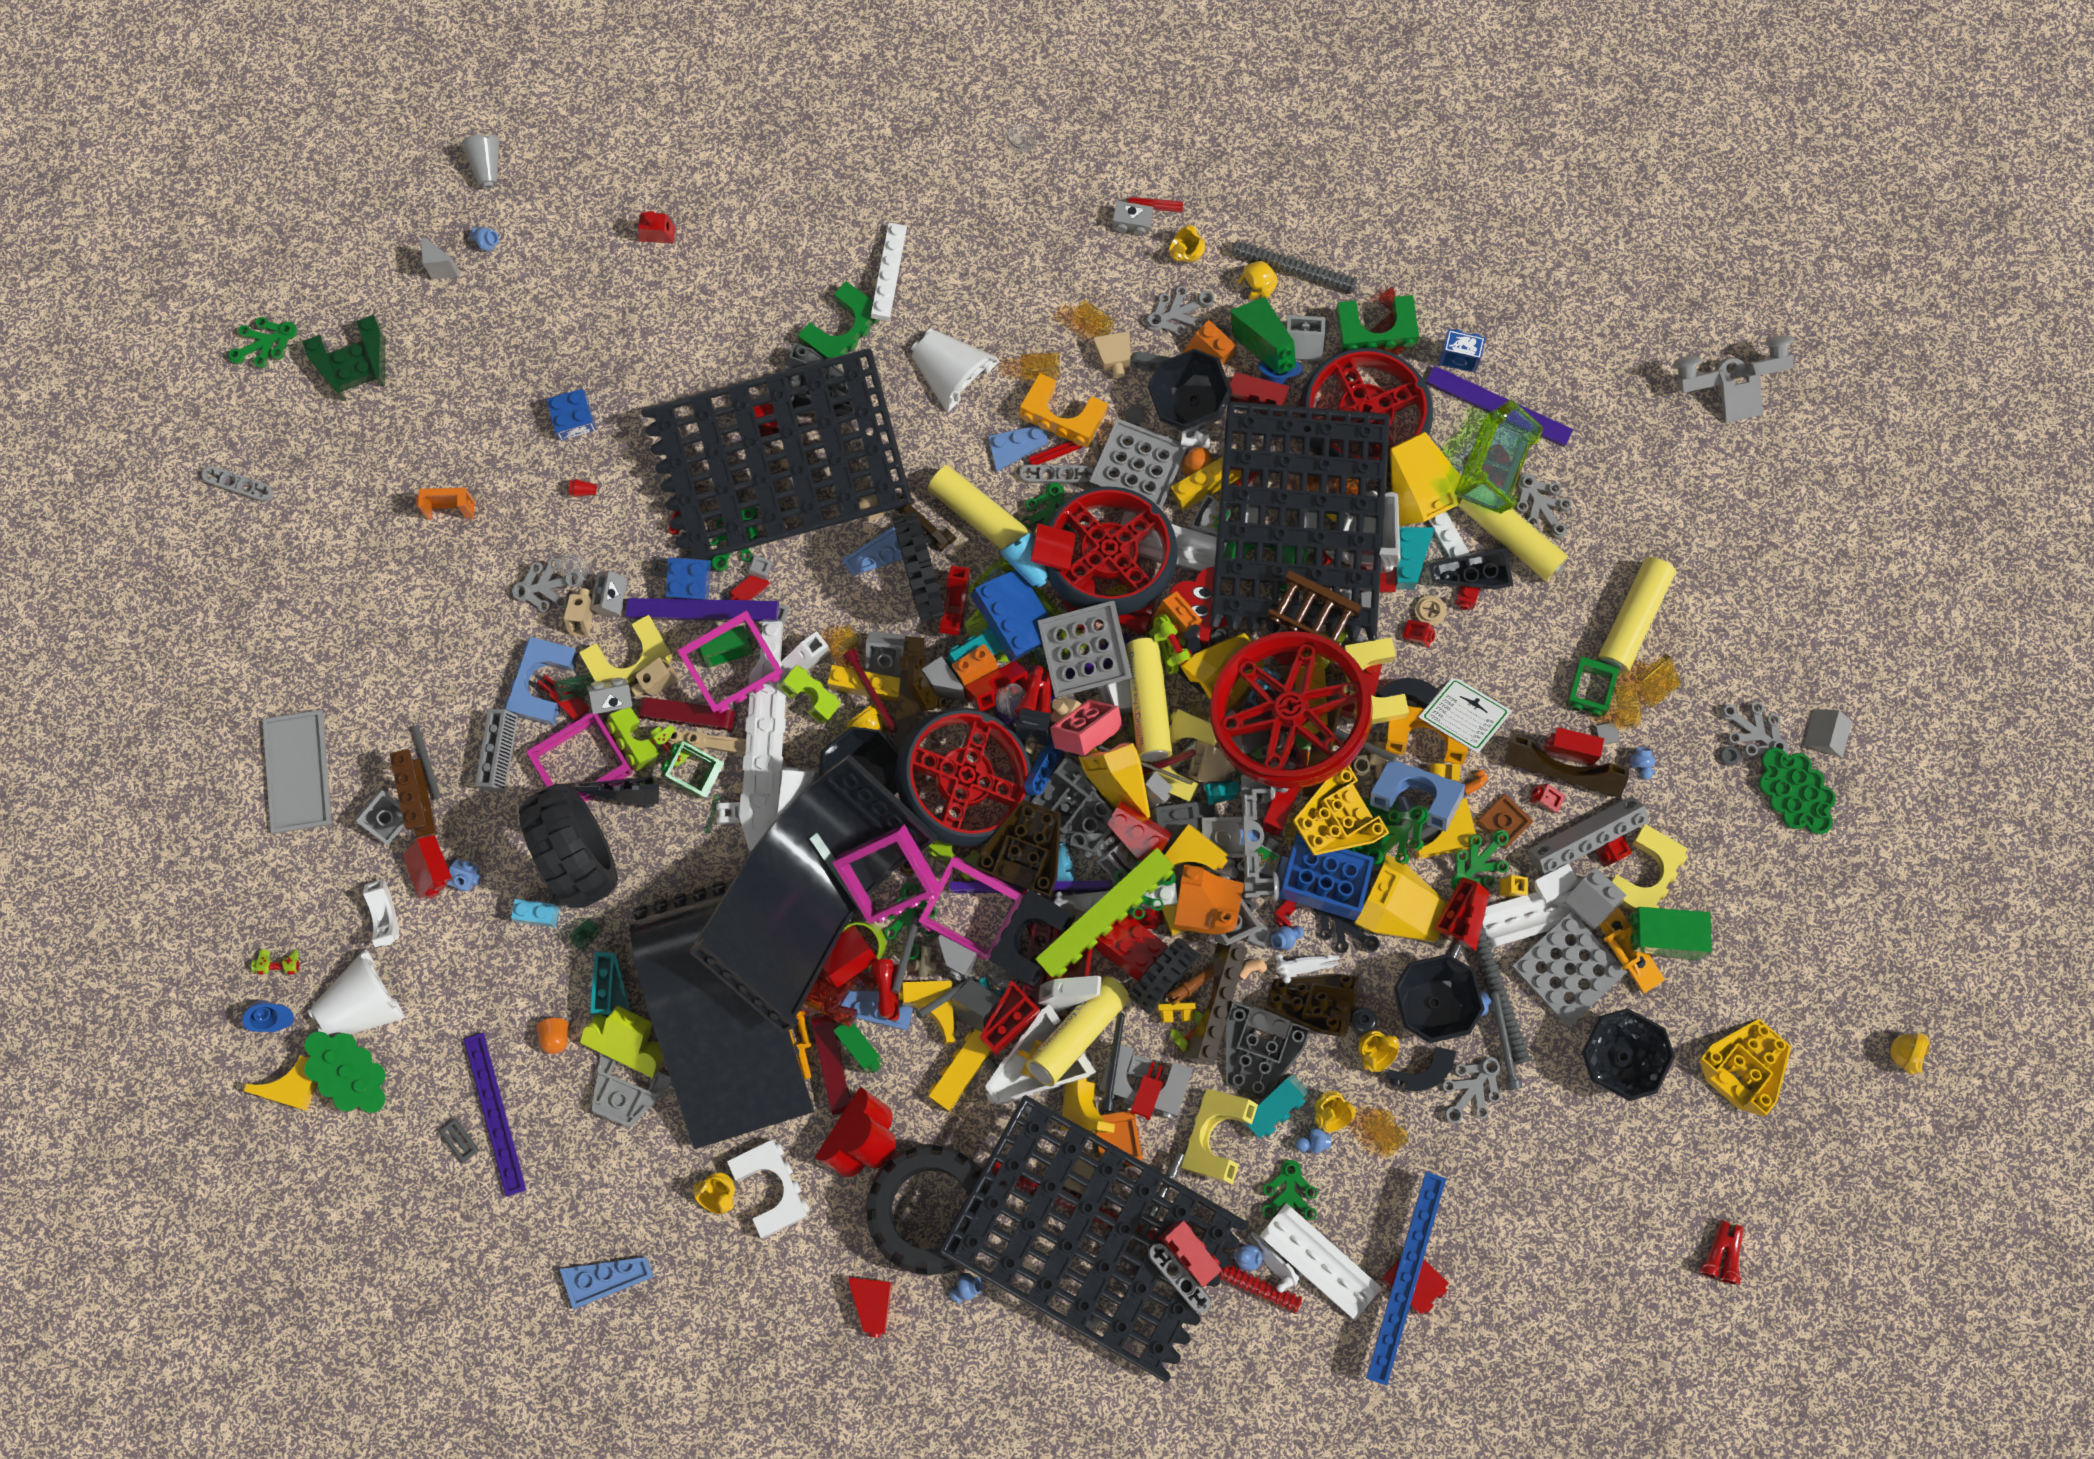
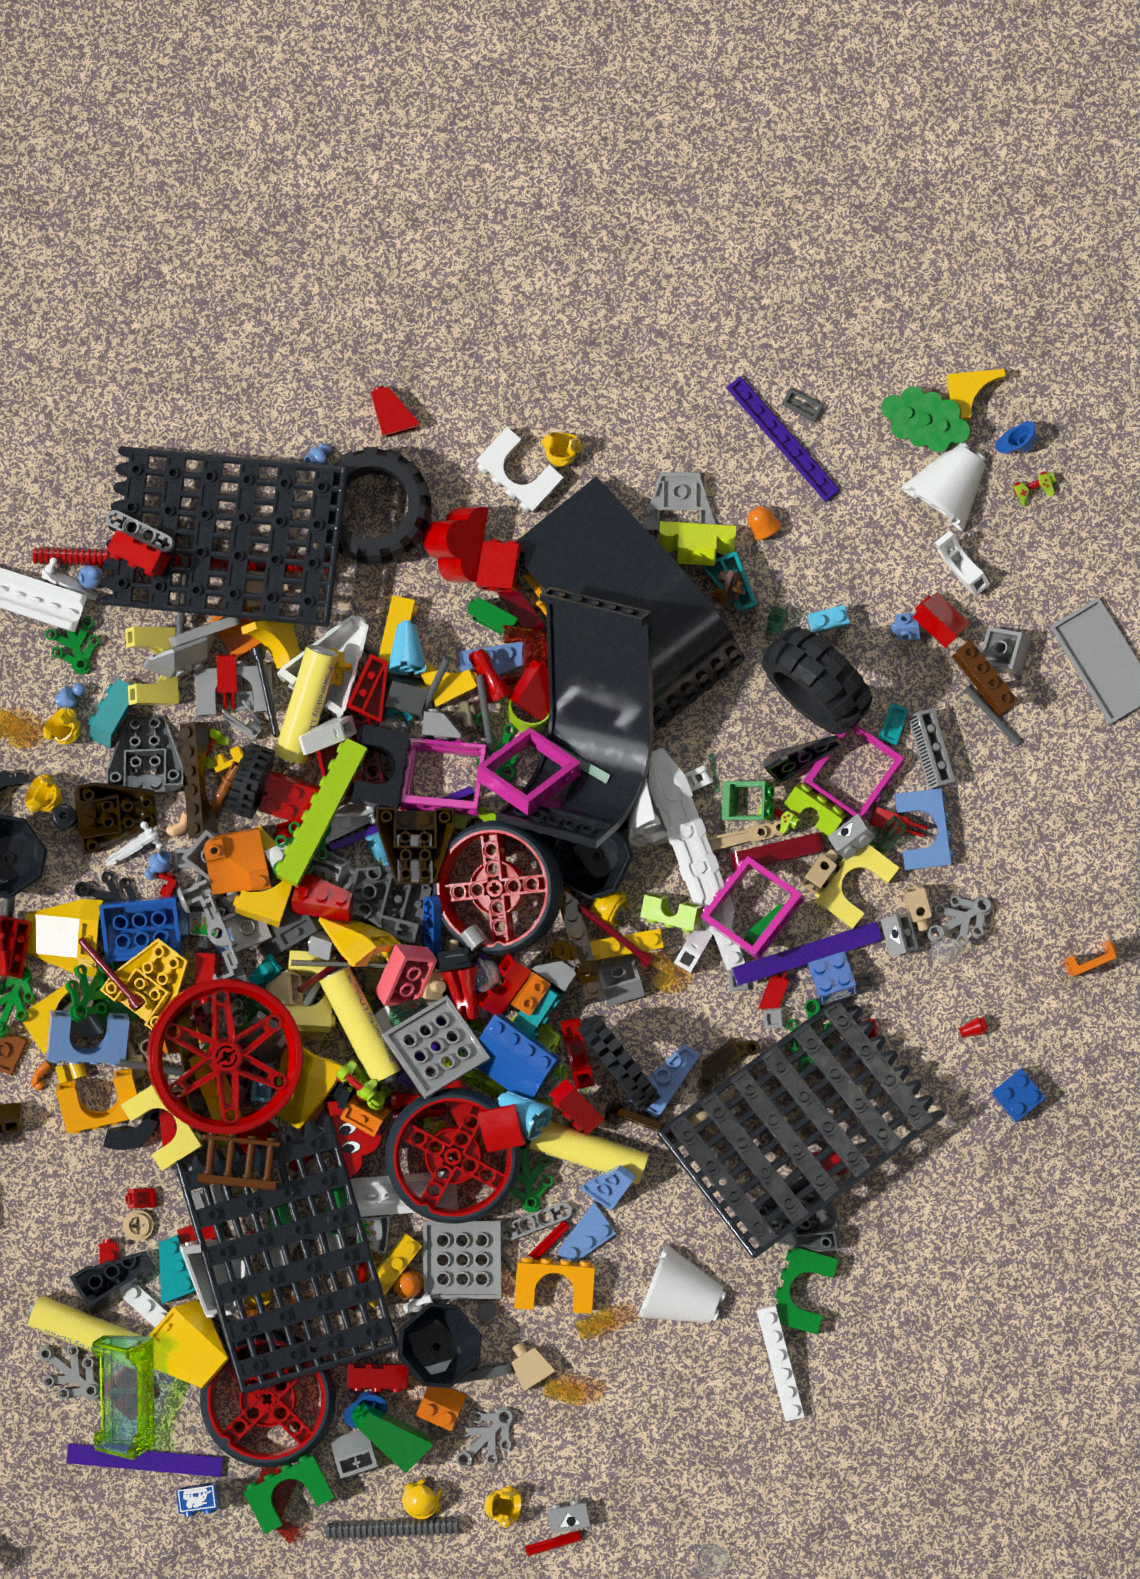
camera: 160 degrees right, 10 degrees up
(521, 789) = (893, 724): none -> teal plate
(600, 1280) = (627, 341): medium blue wing -> none
(607, 983) = (731, 588): none -> reddish brown hips
(655, 228) = (1026, 1317): red torso -> none
(822, 549) = (724, 1057): none -> dark brown plate
(828, 1093) = (499, 566): none -> red panel
(956, 1045) = (406, 651): none -> medium azure cone
(976, 472) = (609, 1186): none -> medium blue wing
(976, 547) = (575, 1107): none -> red wedge
(1006, 735) = (473, 937): none -> light grey brick
(1099, 695) = (397, 1018): none -> tile
(1143, 1035) = (251, 729): none -> light grey plant
(1155, 1149) = (203, 630): none -> light grey beam
(1185, 1129) = (181, 658): none -> light grey wedge
(1359, 805) = (135, 1001): none -> dark red piece
(1465, 714) = (70, 1133): white sticker -> none

